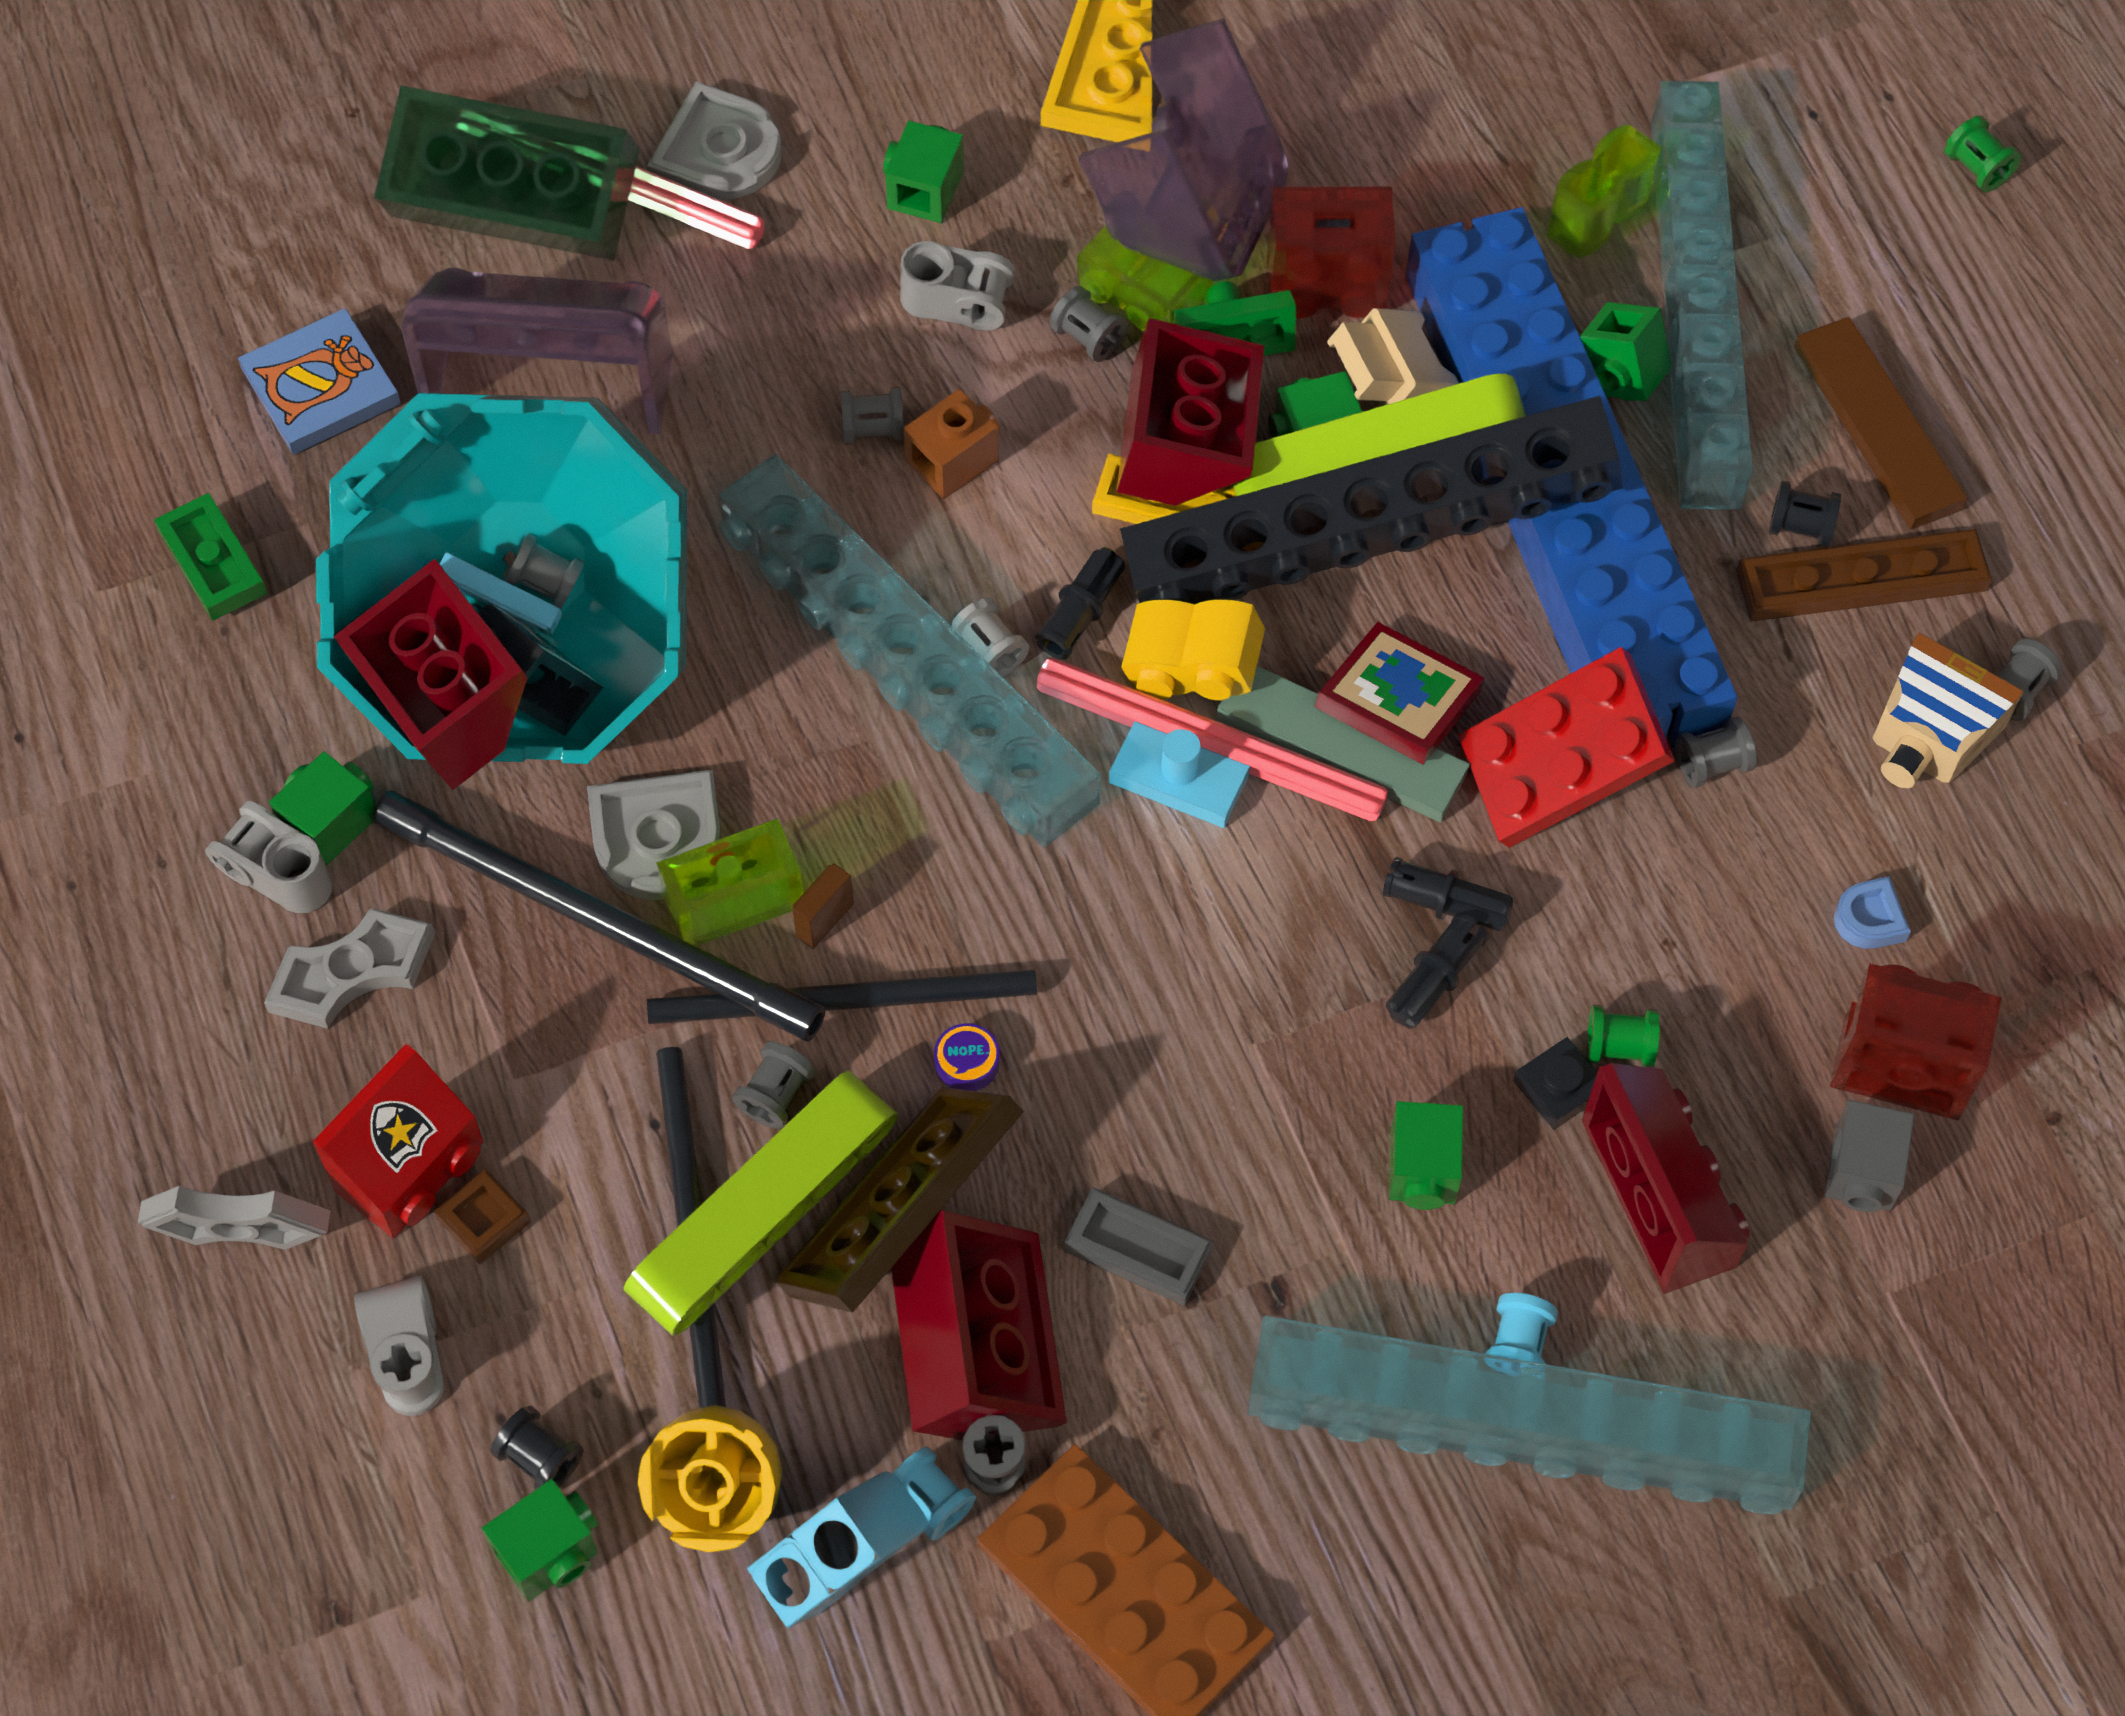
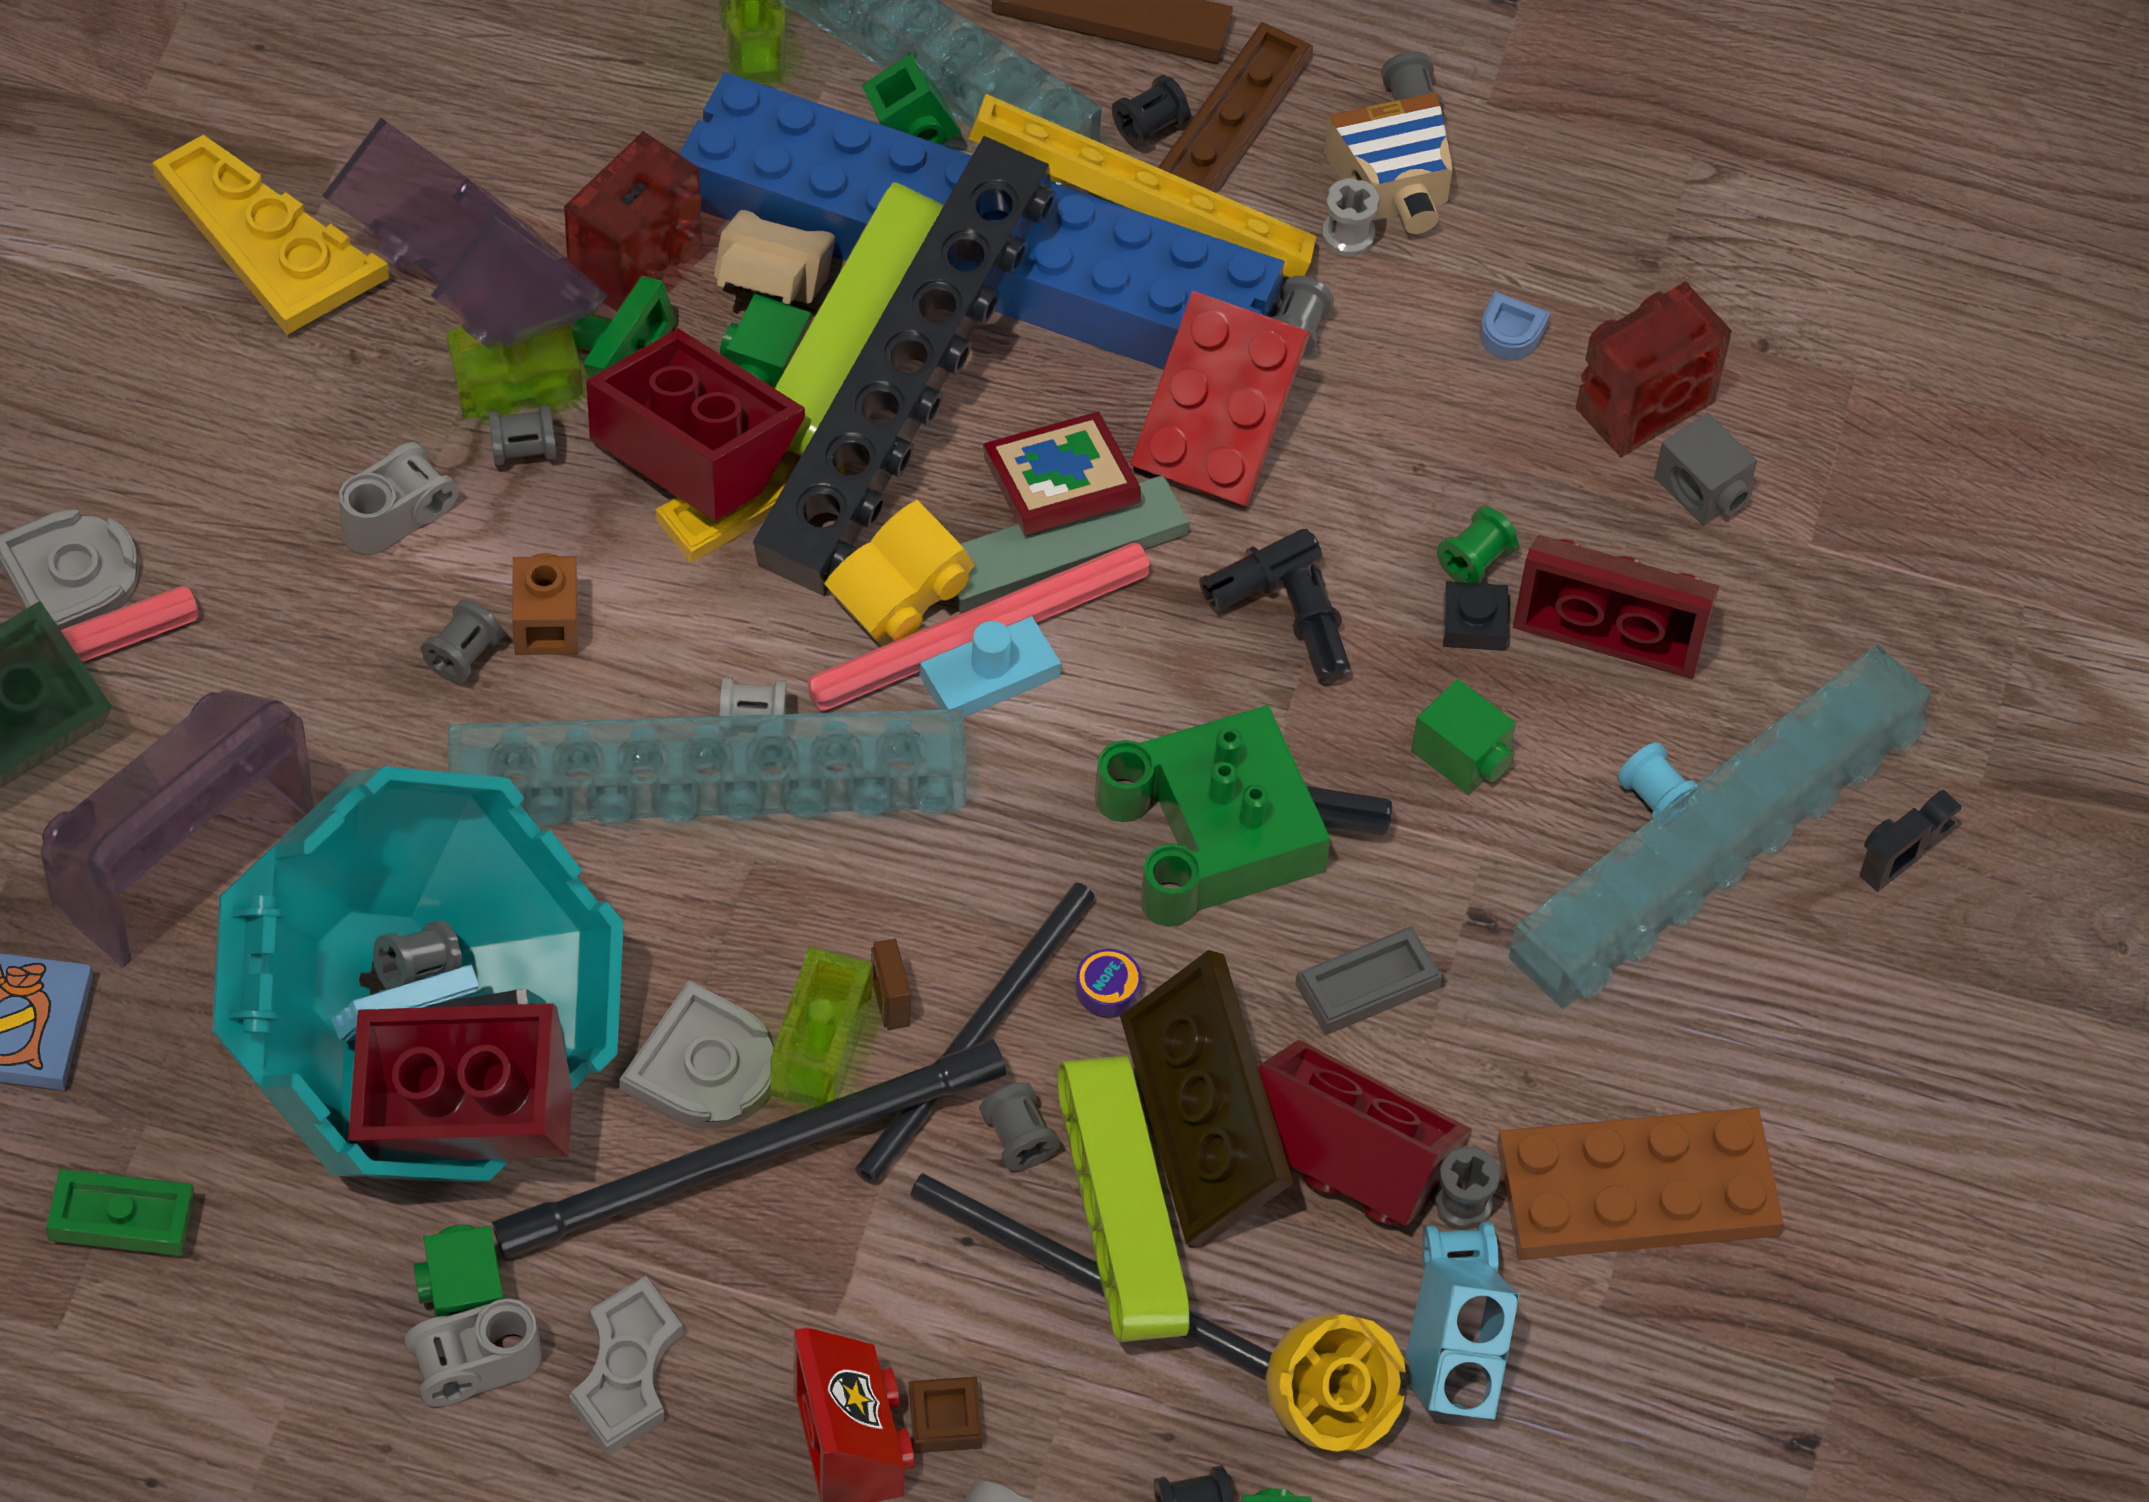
camera: 55 degrees left, 5 degrees down
(923, 170) = (257, 441): green brick -> none
(1080, 603) = (776, 624): black axle -> none
(1198, 1034) = (1233, 810): none -> green piece
(1637, 1571) = (1901, 844): none -> black plate
(1708, 553) = (1141, 186): none -> yellow plate
(1848, 721) = (1351, 209): none -> light grey bush

